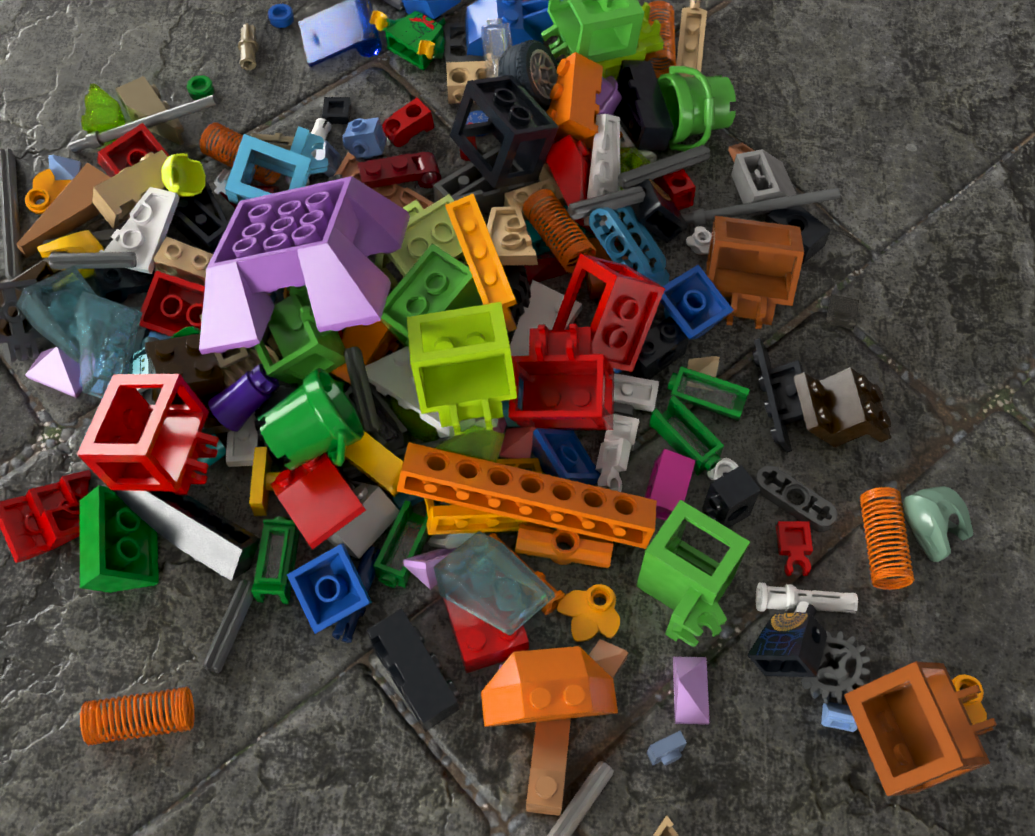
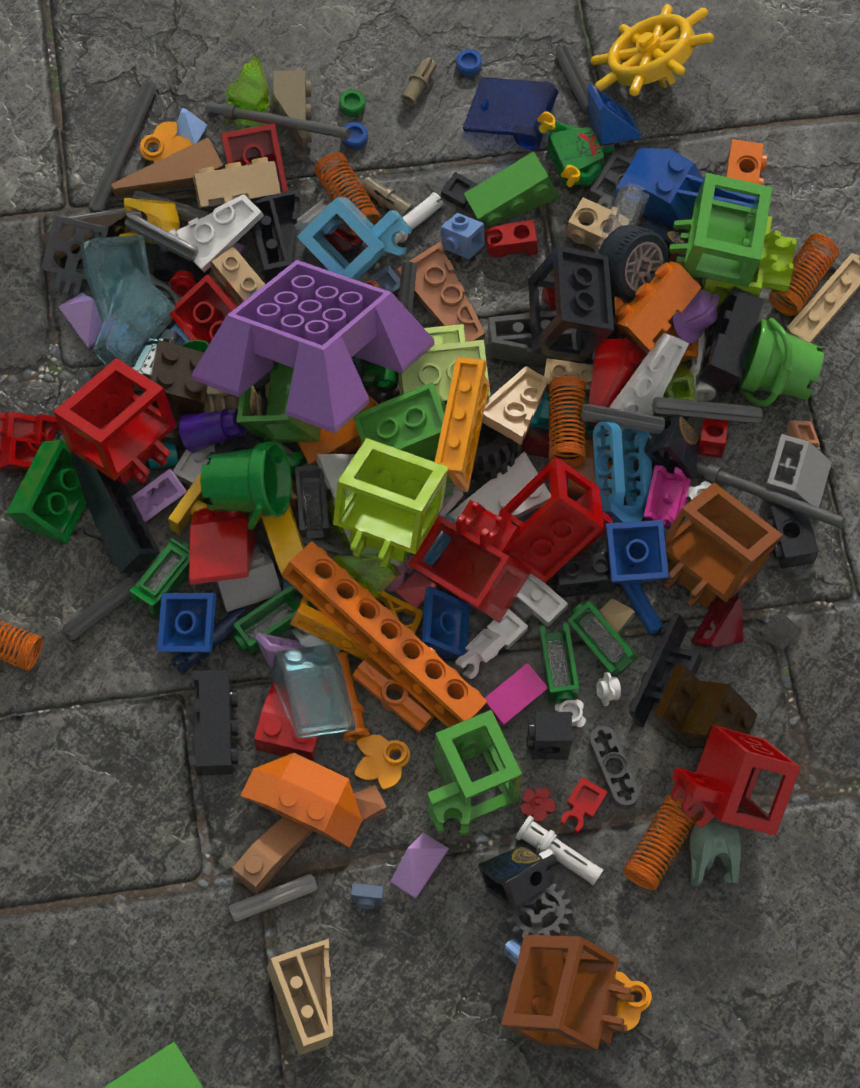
camera: 30 degrees right, 5 degrees up
(133, 290) = (182, 282): none -> red plate
(183, 175) = (277, 198): neon yellow hair -> none
(220, 113) = (358, 136): none -> blue tile
(226, 486) = (158, 494): none -> lavender slope
(333, 157) = (420, 238): sand blue plate -> none
(361, 390) = (309, 473): dark grey axle -> none
(384, 84) = (512, 192): none -> bright green wedge
(400, 169) = (474, 283): dark red plate -> none
(677, 250) = (666, 495): none -> dark pink hinge
(715, 348) = (643, 608): none -> blue axle
(743, 434) = (608, 689): none -> white plate
(754, 570) = (537, 803): none -> red plant
(792, 330) = (721, 624): none -> dark red slope
(917, 442) = (728, 779): none -> red piece

